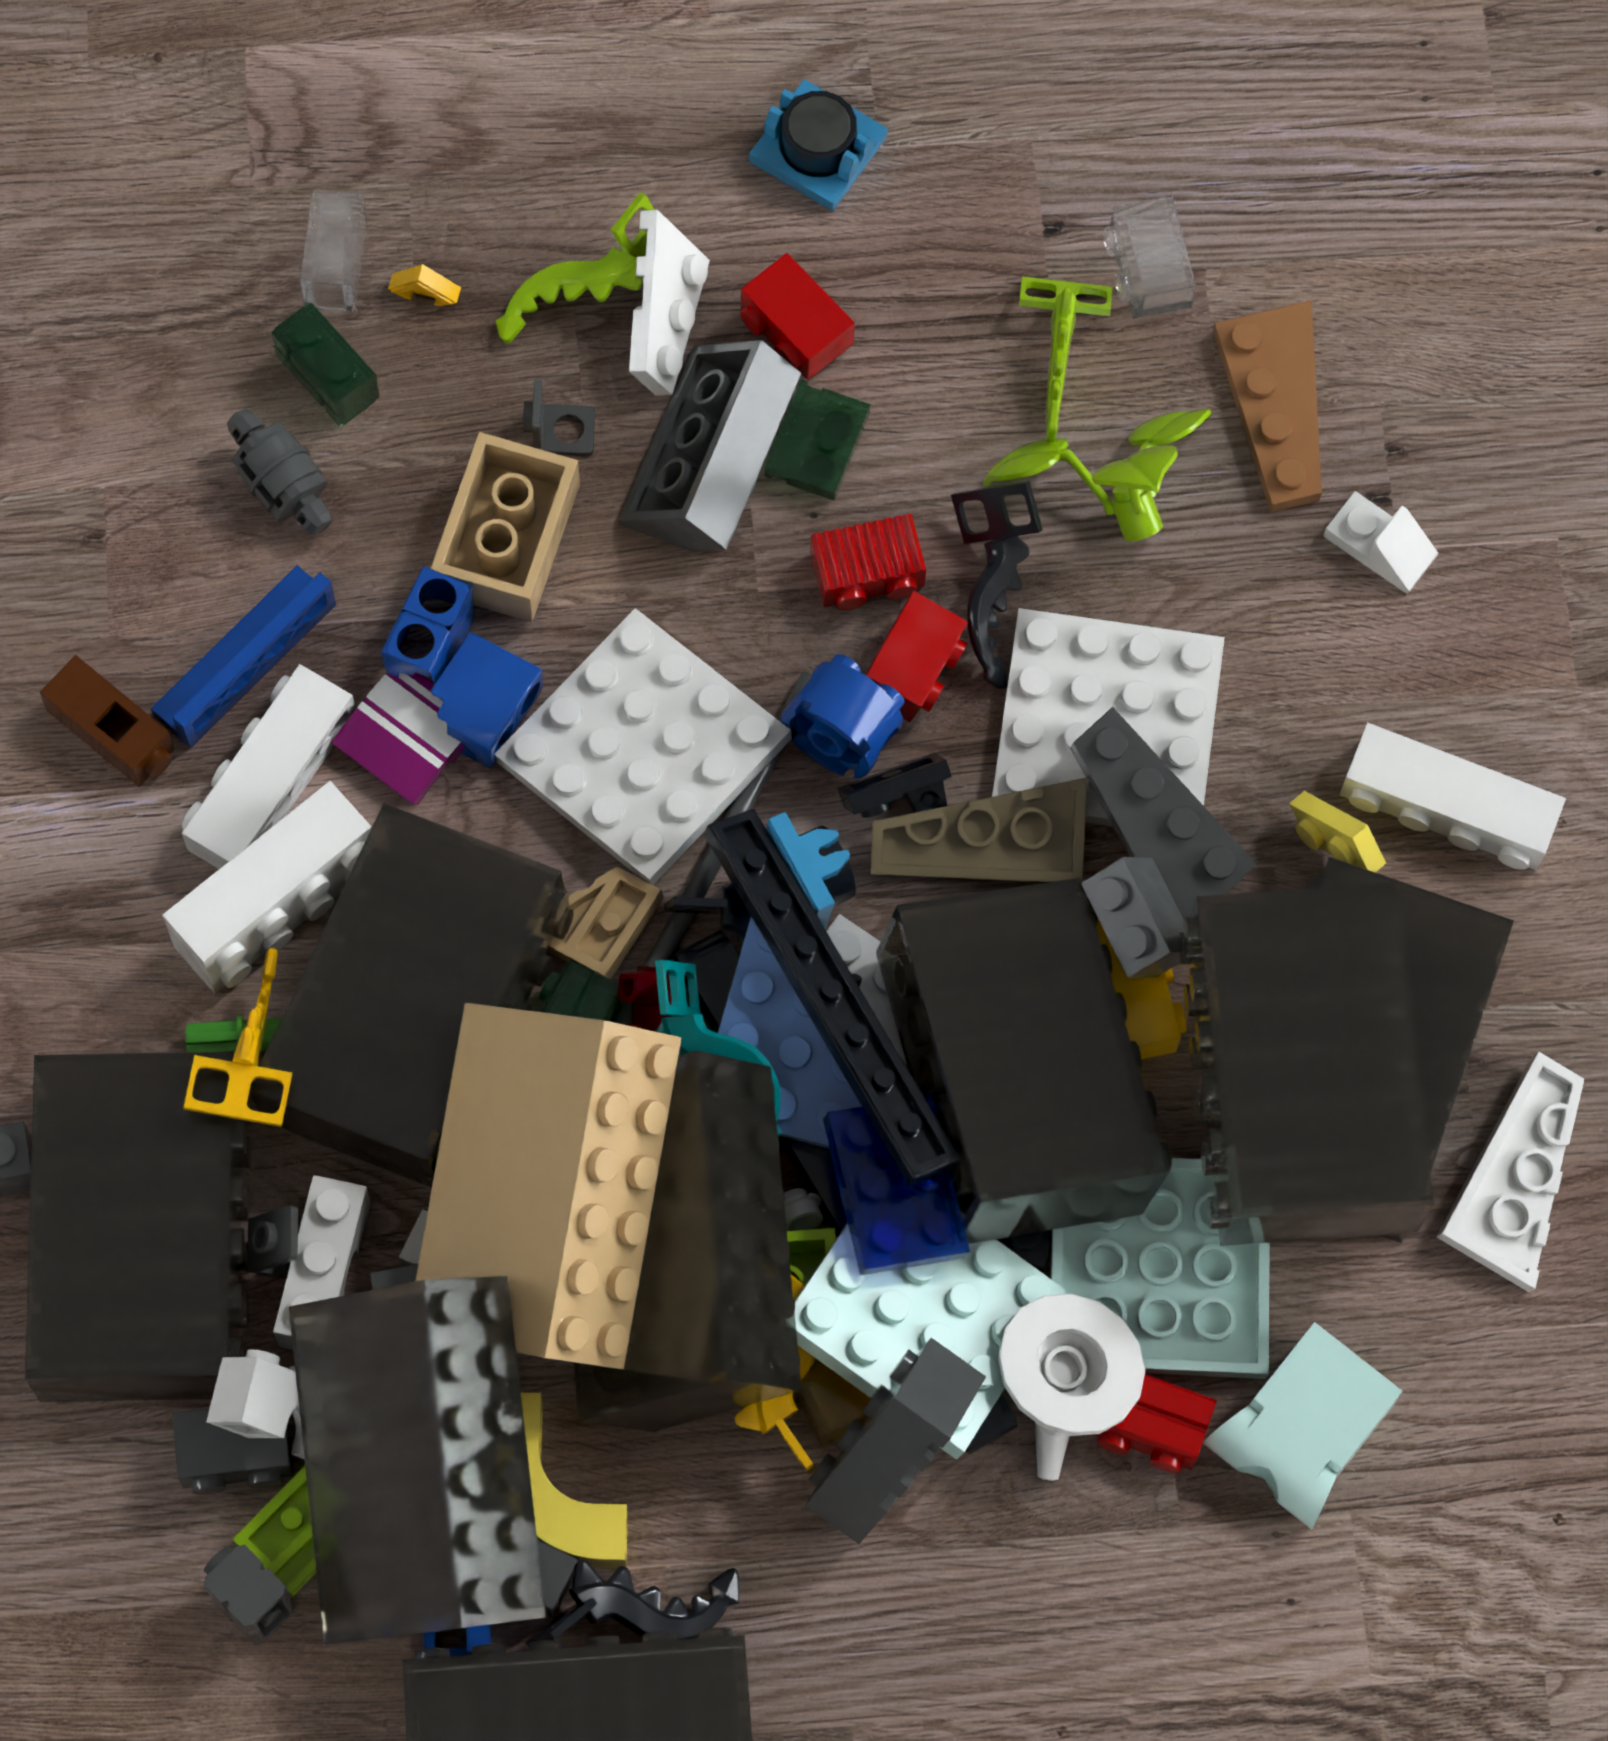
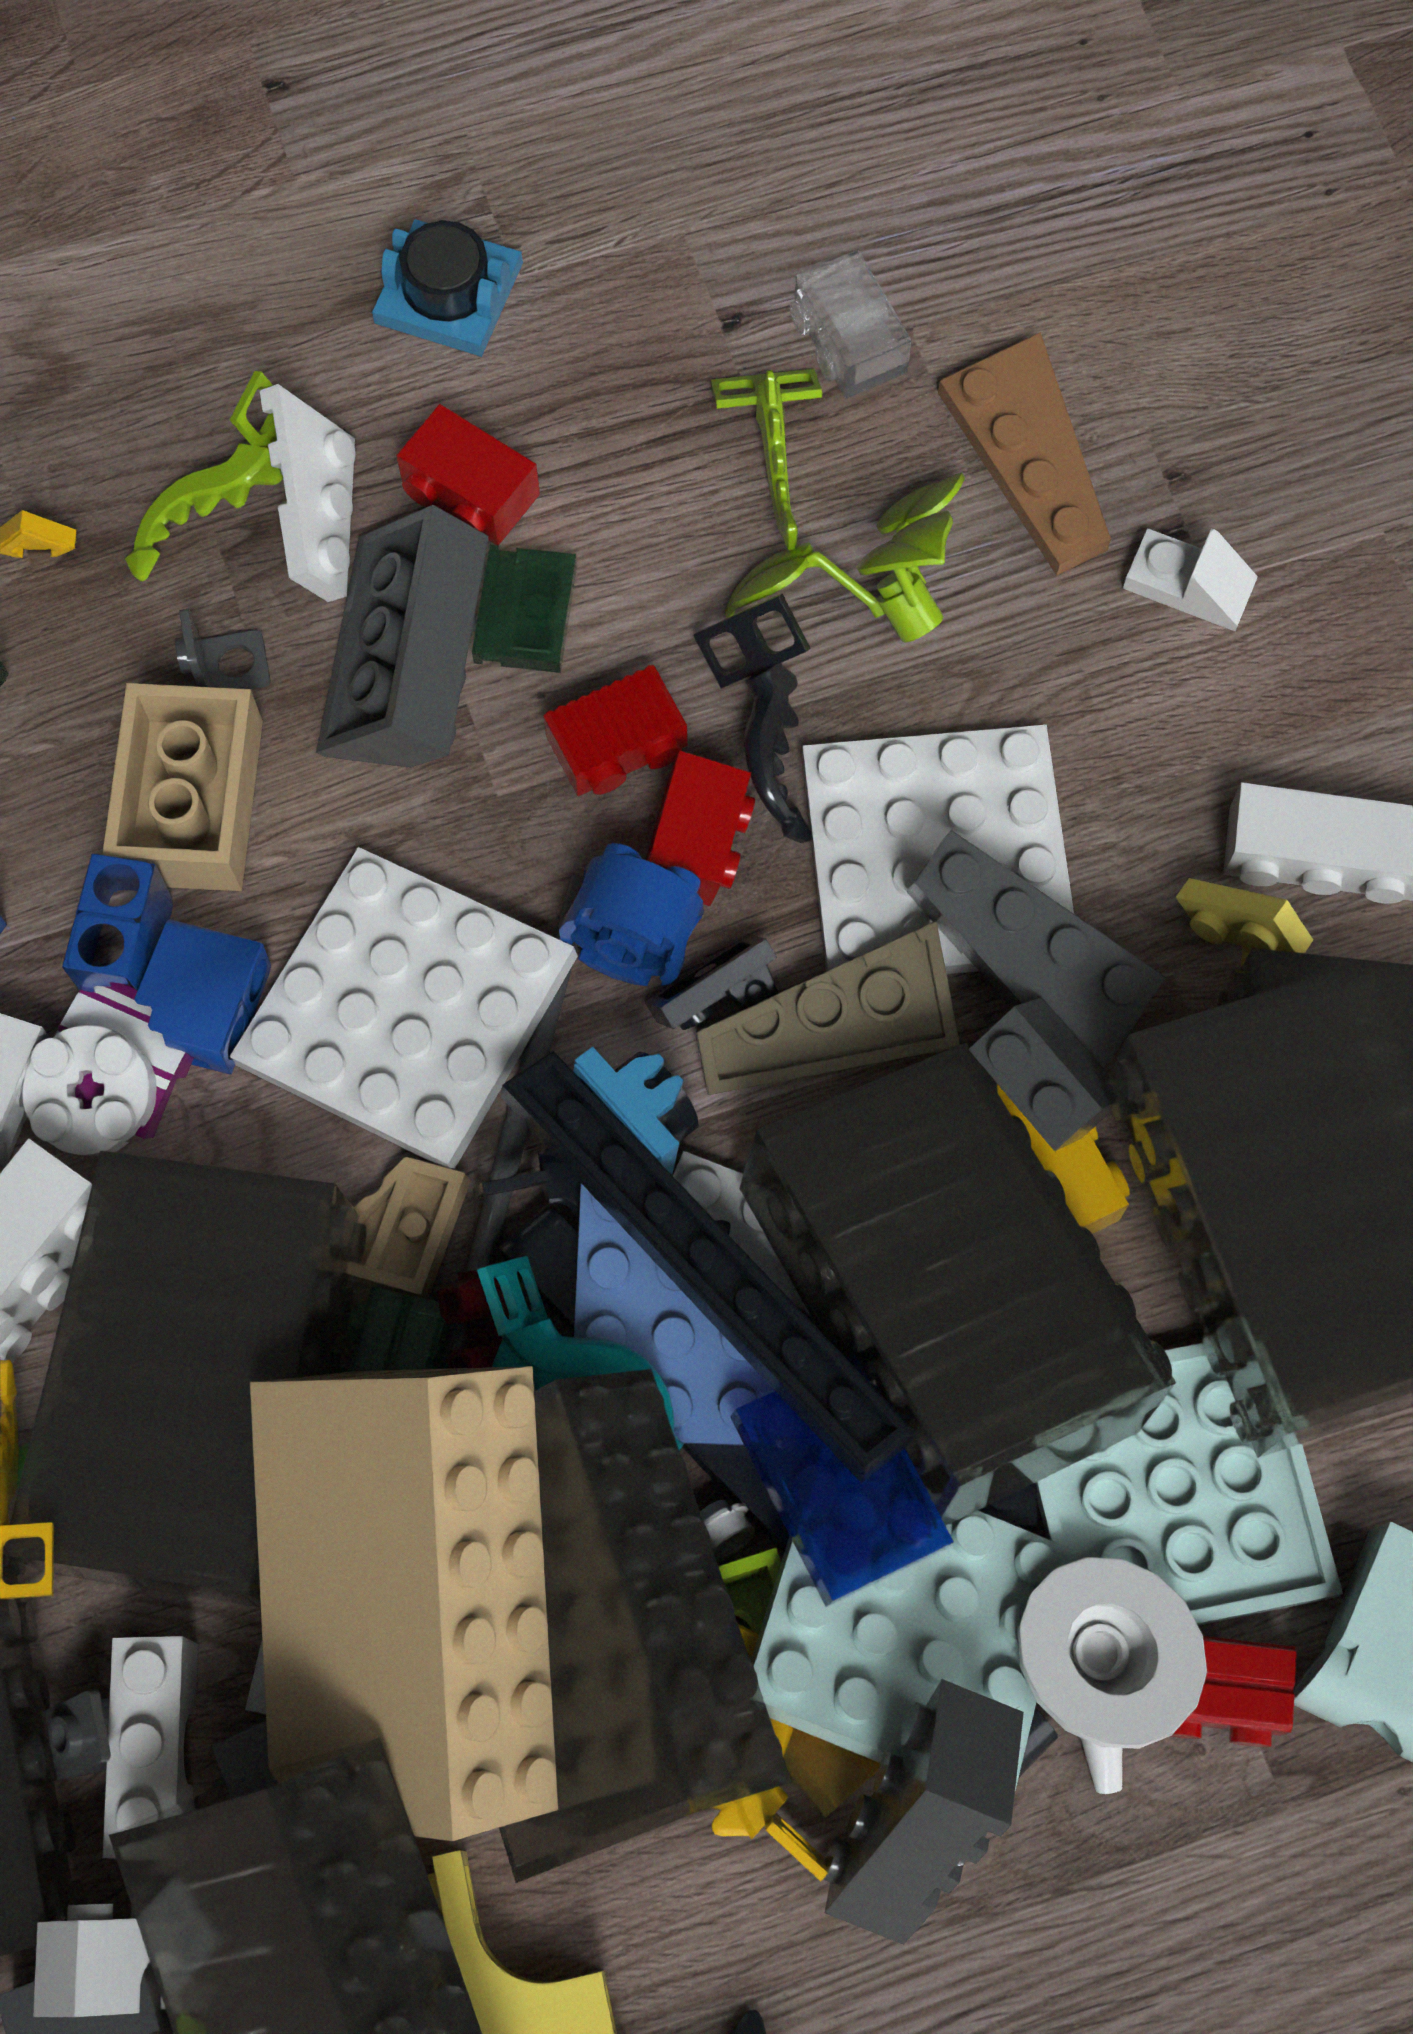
camera: 10 degrees left, 0 degrees up
(394, 779) = (60, 1066): none -> white plate

